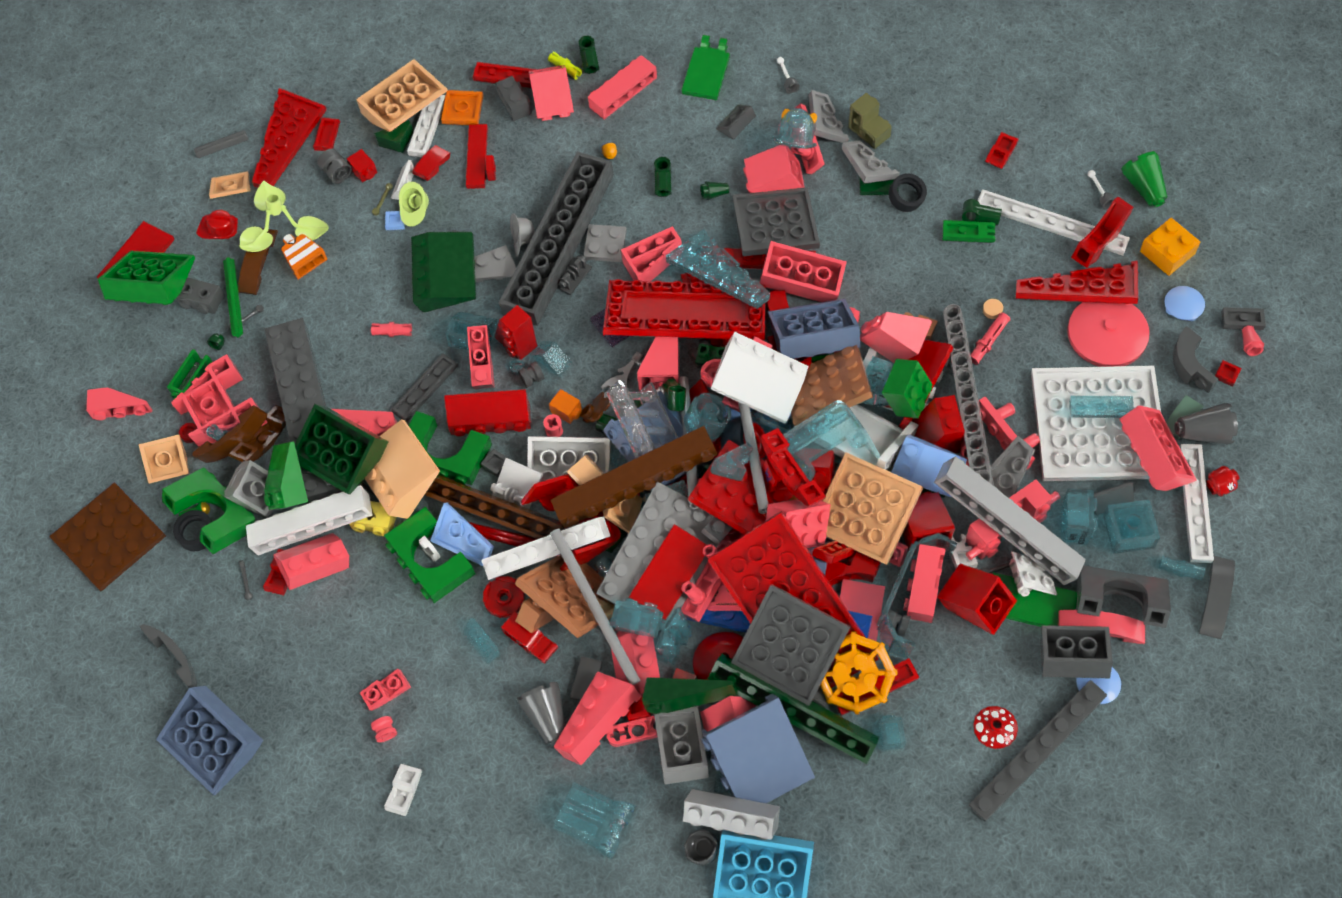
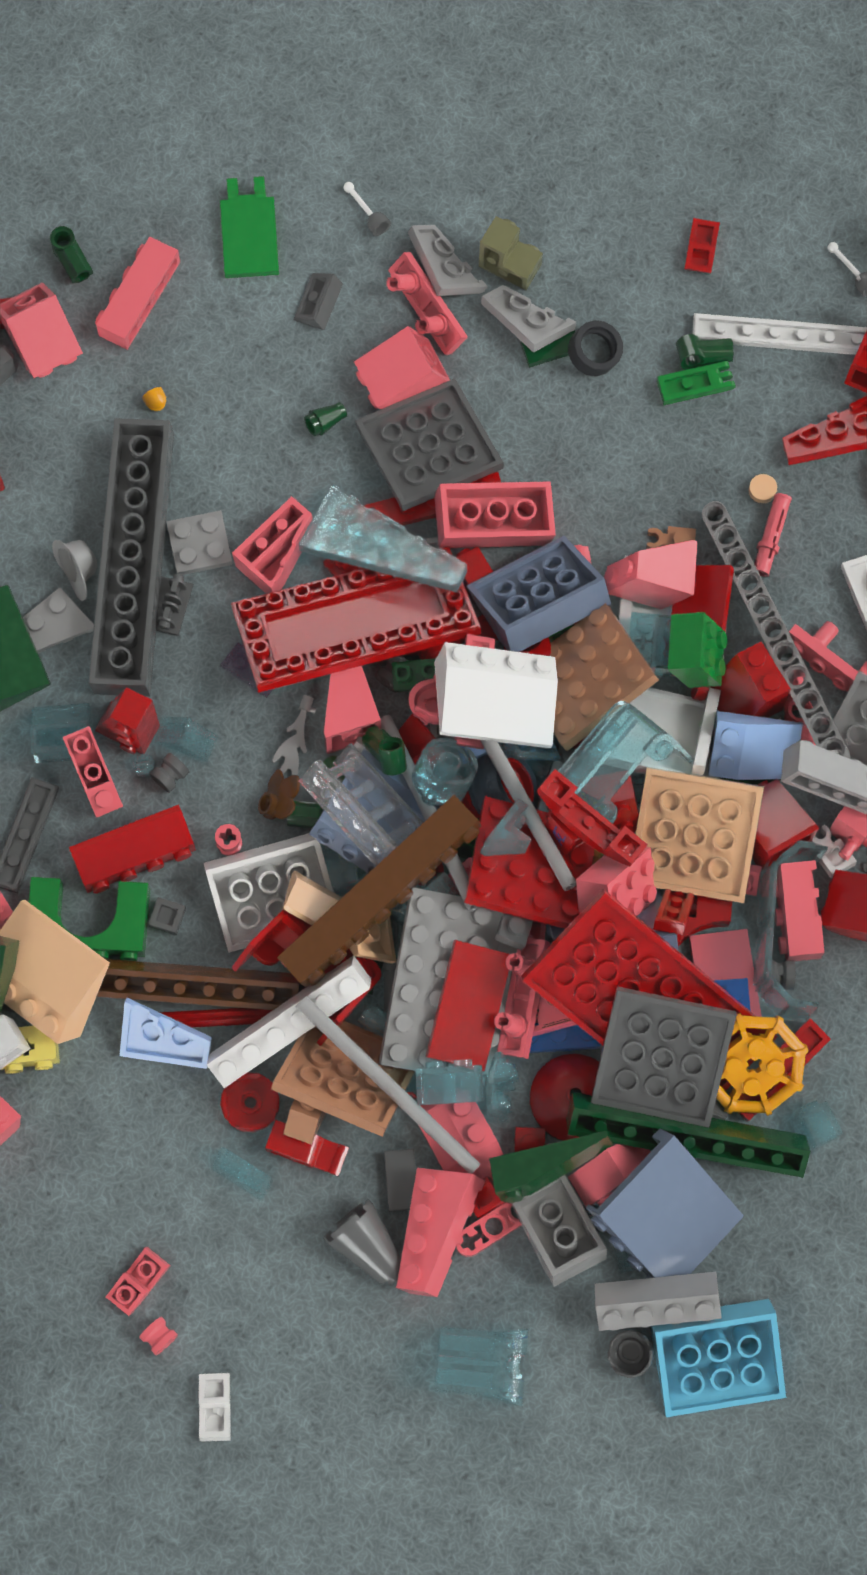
camera: 25 degrees left, 10 degrees up
(429, 550) = (118, 1064): white tile -> none
(434, 581) = (147, 1112): green arch -> none
(515, 482) = (209, 938): white hinge -> none
(565, 406) = (235, 805): orange brick -> none
(571, 69) = (35, 277): neon yellow pin -> none
(662, 177) = (247, 420): dark green piece -> none
(796, 129) = (416, 300): clear light blue hair -> none

